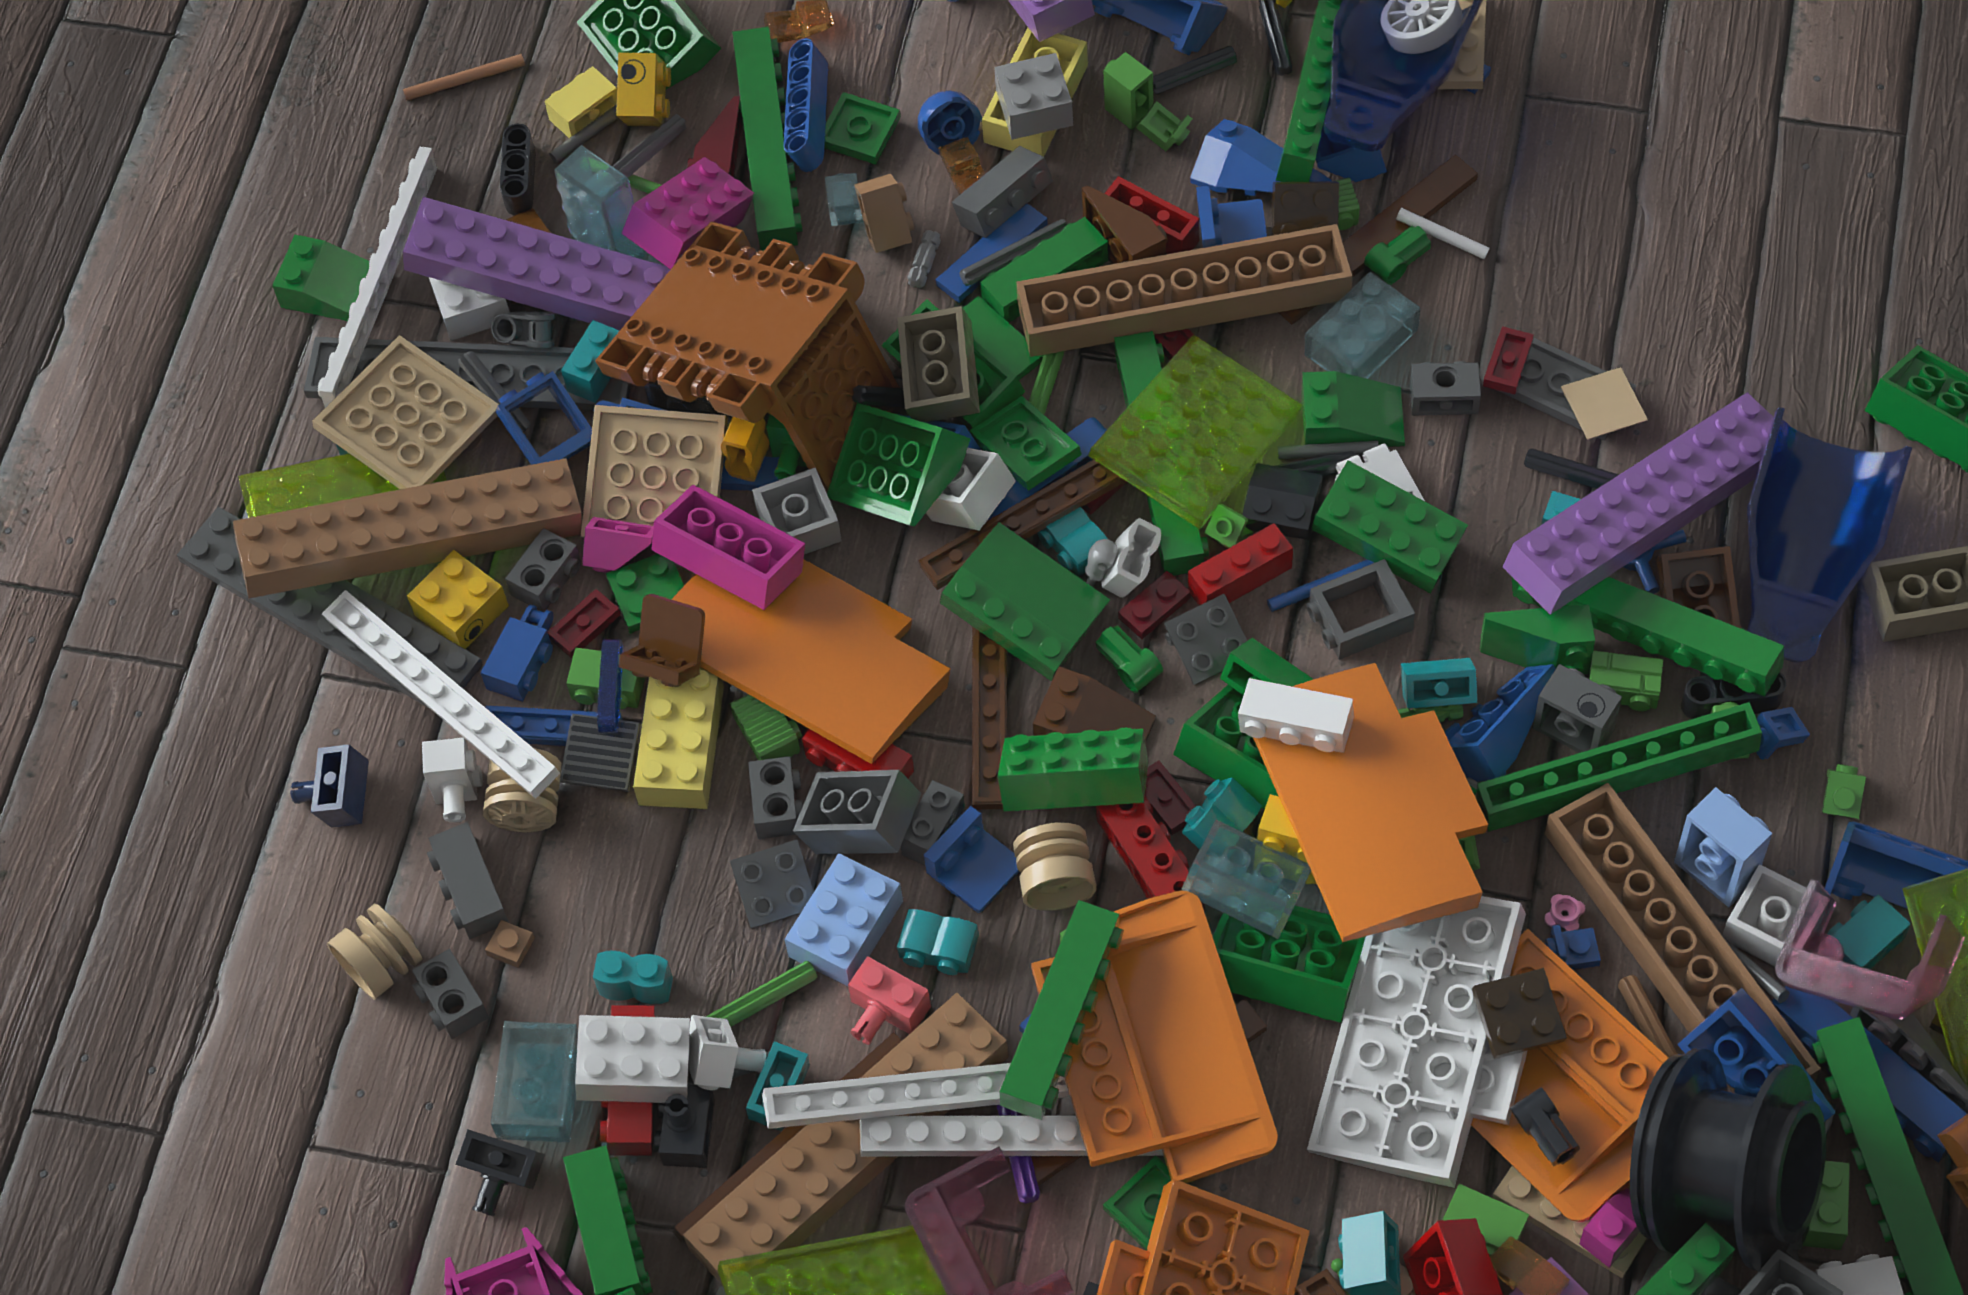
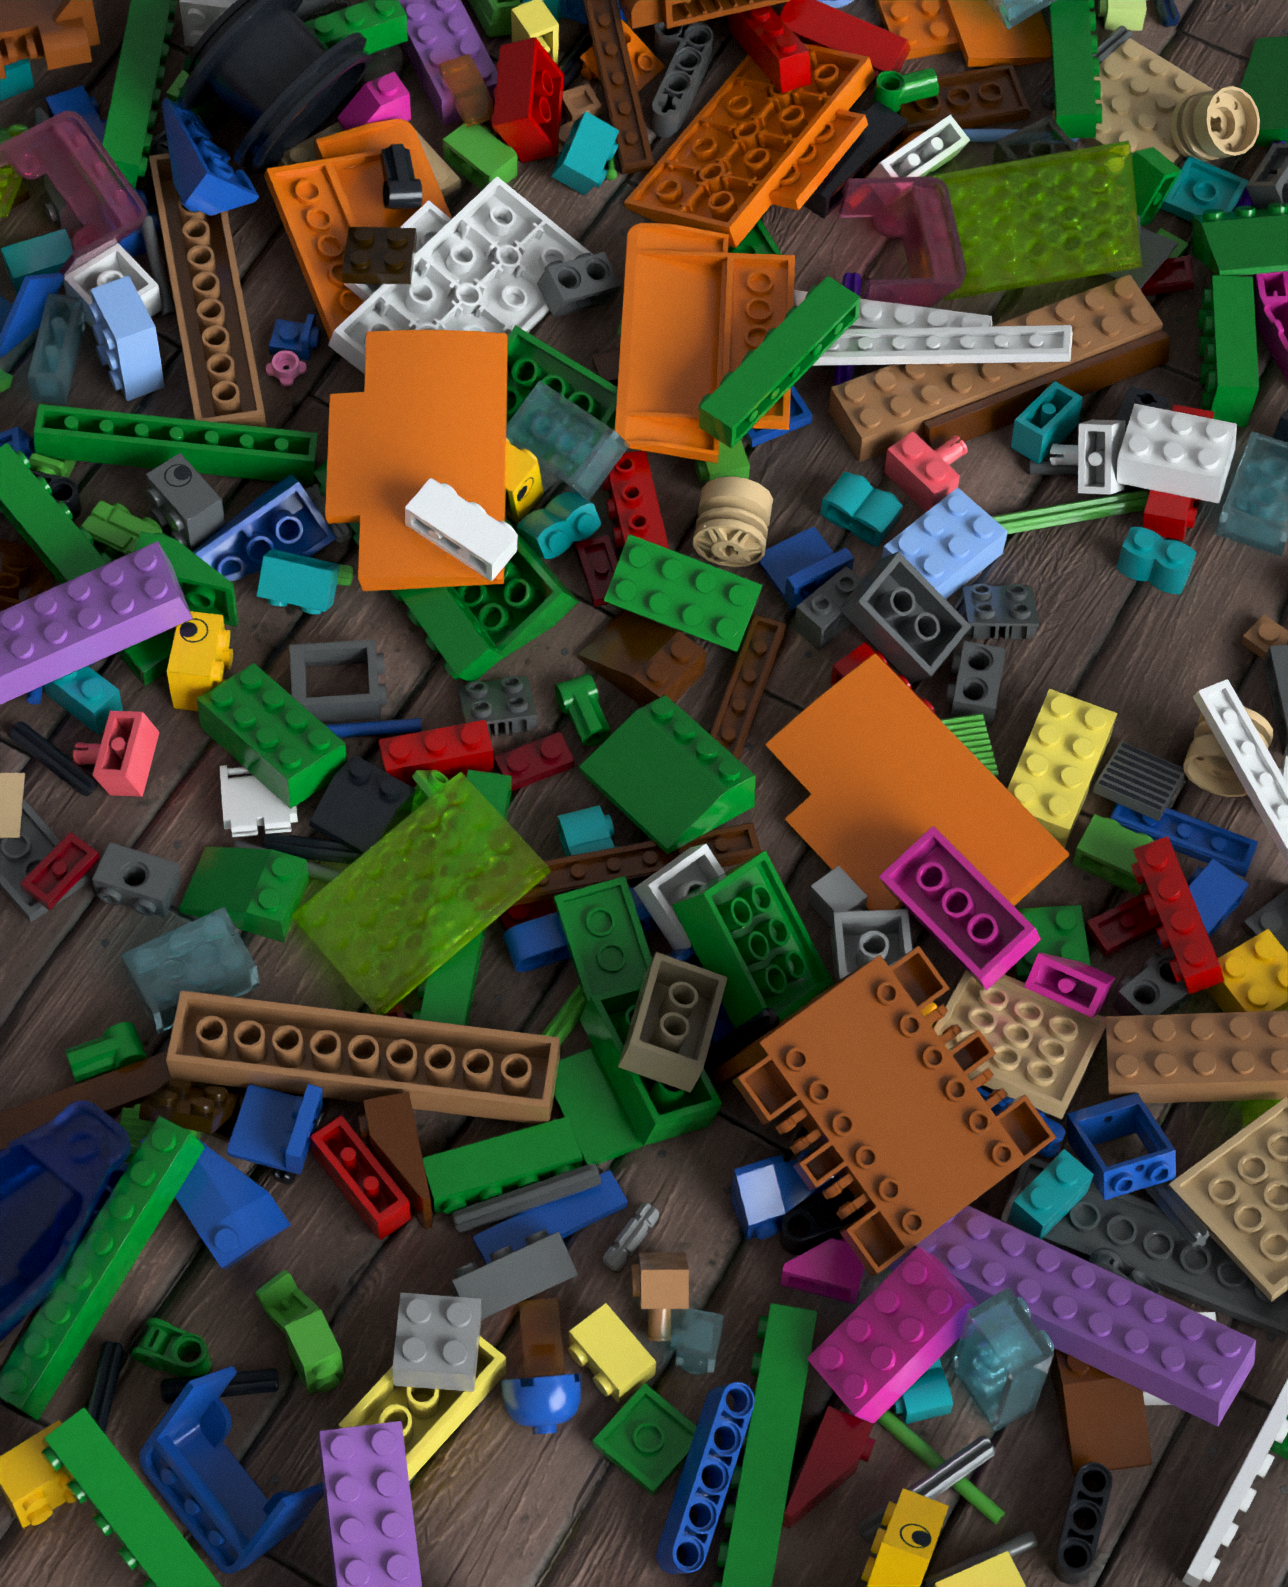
camera: 170 degrees left, 0 degrees up
(536, 601) = (1178, 914): none -> red brick
(609, 687) = (1118, 811): clear blue beam -> none
(667, 642) = (1057, 808): reddish brown bracket -> none
(842, 558) = (836, 894): none -> light grey brick
(918, 171) = (611, 1354): none -> light yellow brick
(1100, 558) = (573, 794): light grey piece -> none
(1133, 557) = (542, 794): white brick -> none
(1234, 75) = (167, 1345): none -> green piece
(1303, 1083) = (580, 289): none -> dark grey brick
(1443, 233) = (45, 1062): white bar -> none
(1481, 569) = (198, 658): none -> yellow brick
(1510, 478) = (124, 754): none -> coral brick
(1645, 1014) = (262, 263): medium nougat axle -> none
(1793, 835) = (56, 349): none -> clear light blue brick

